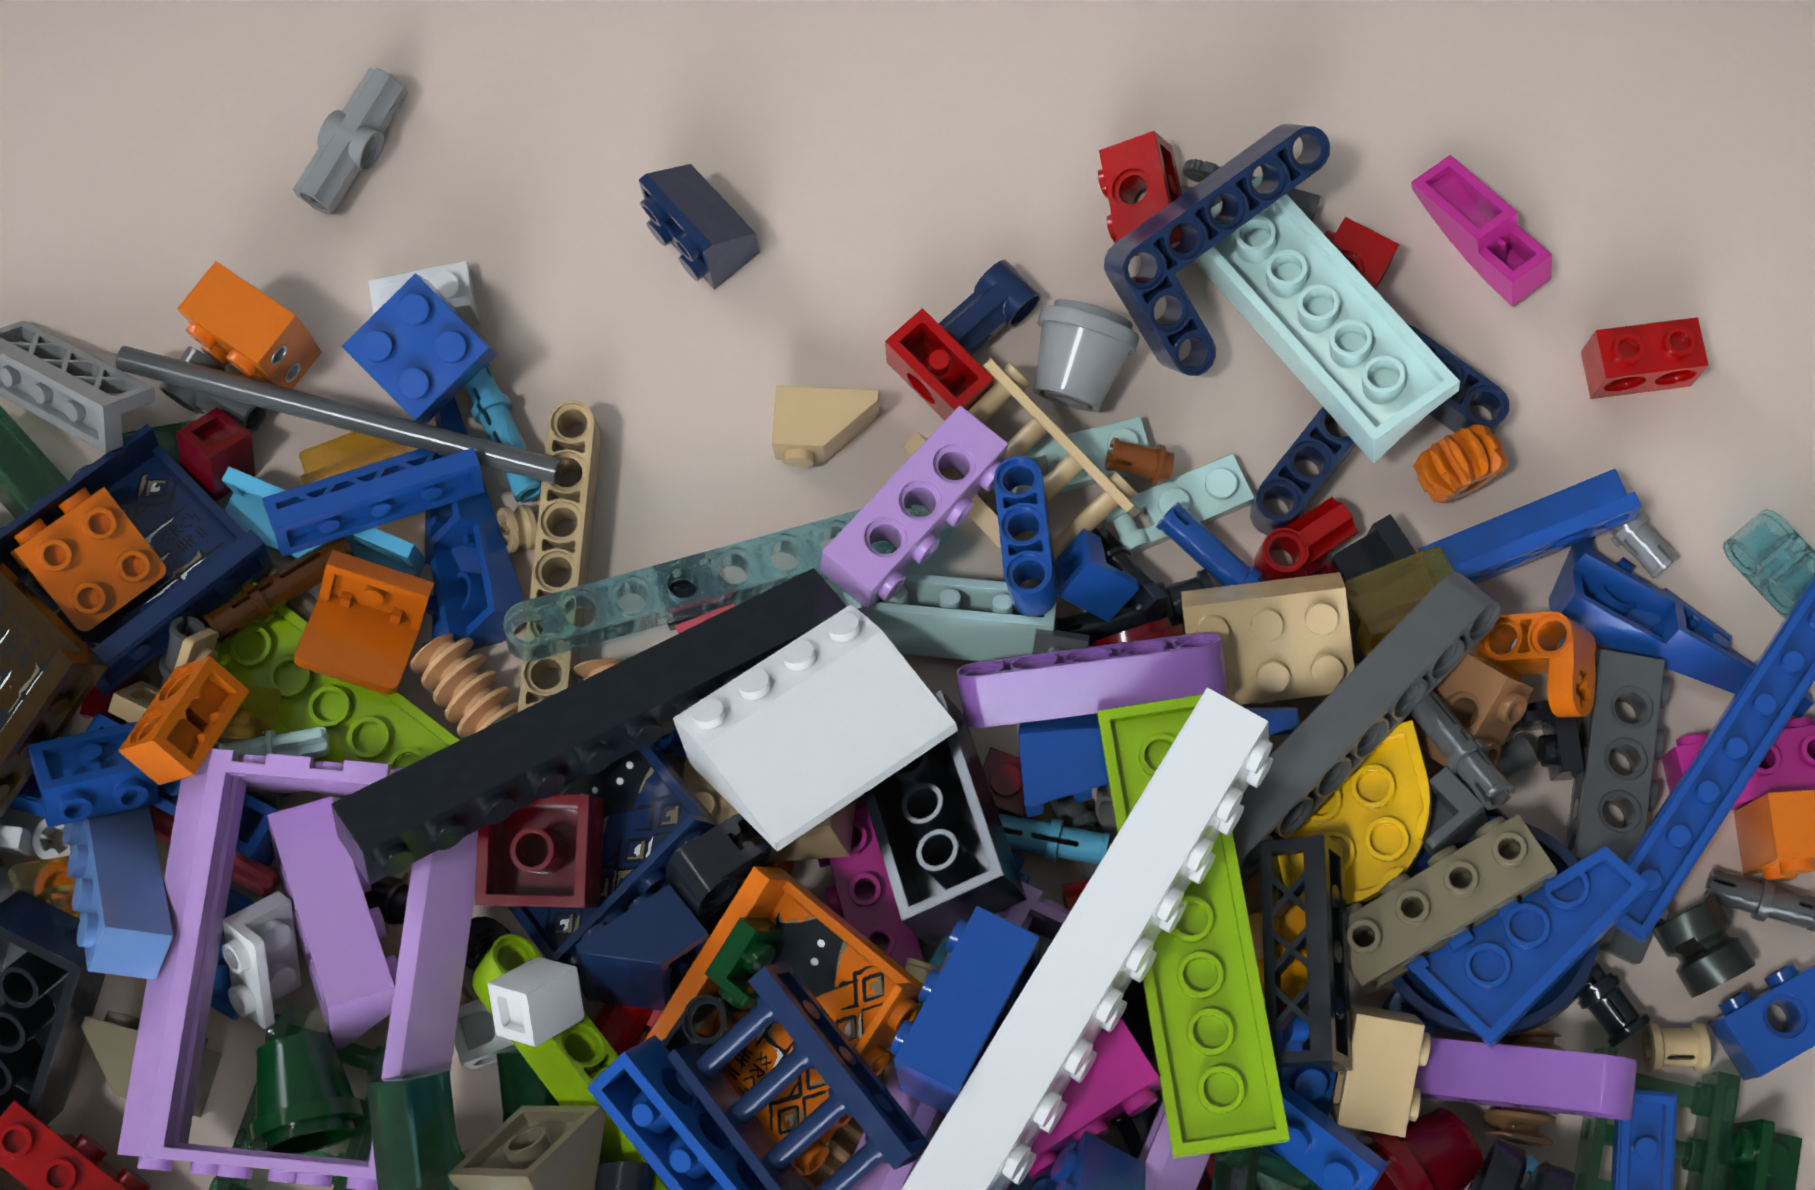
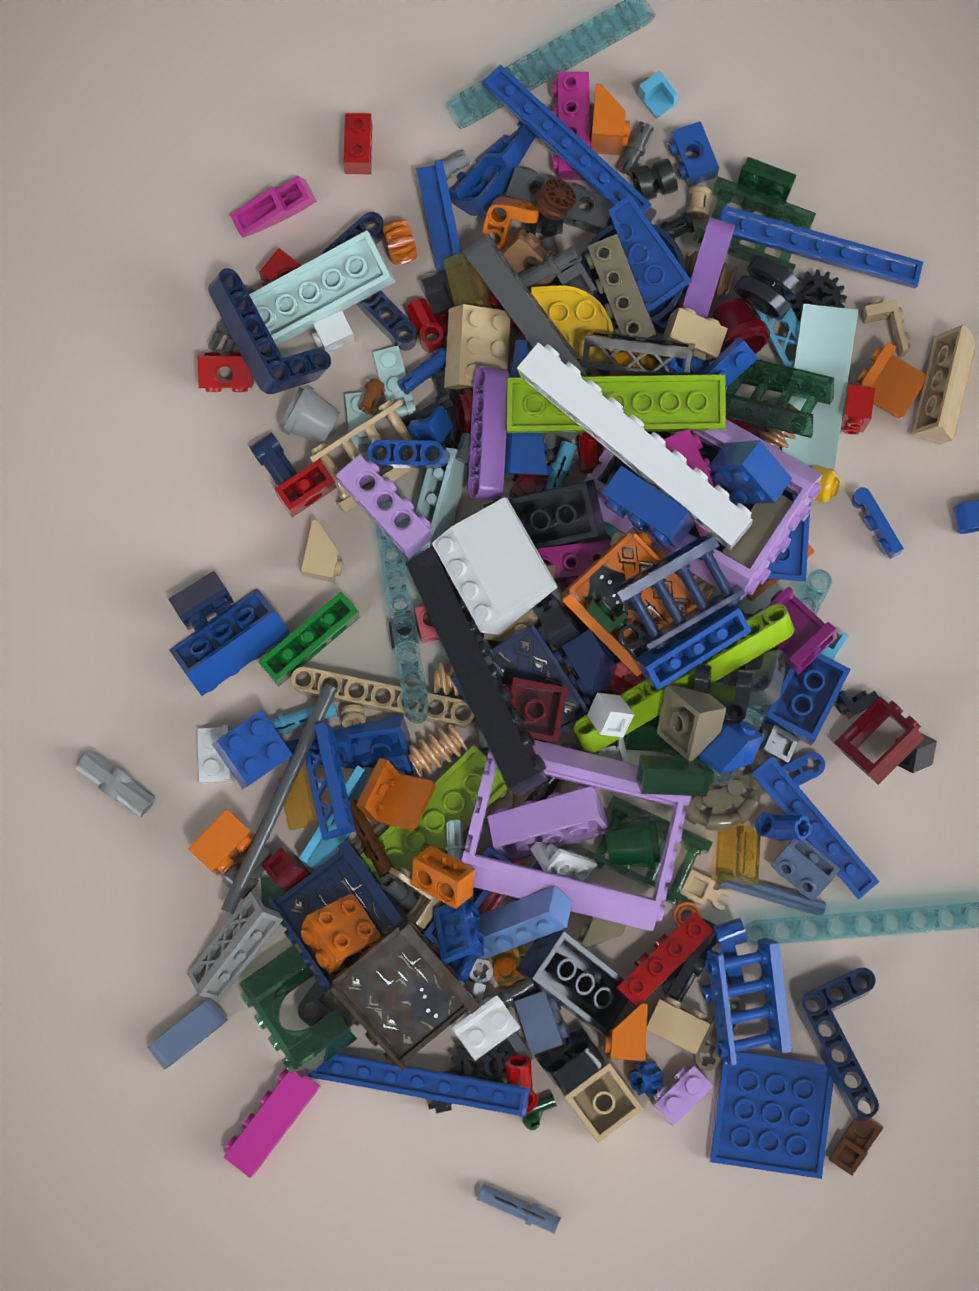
camera: 85 degrees left, 5 degrees up
(630, 288) = (229, 642): none -> blue slope
(651, 423) = (309, 638): none -> green brick
(1255, 373) = (332, 332): none -> white brick
(1606, 739) = (553, 200): none -> copper wheel

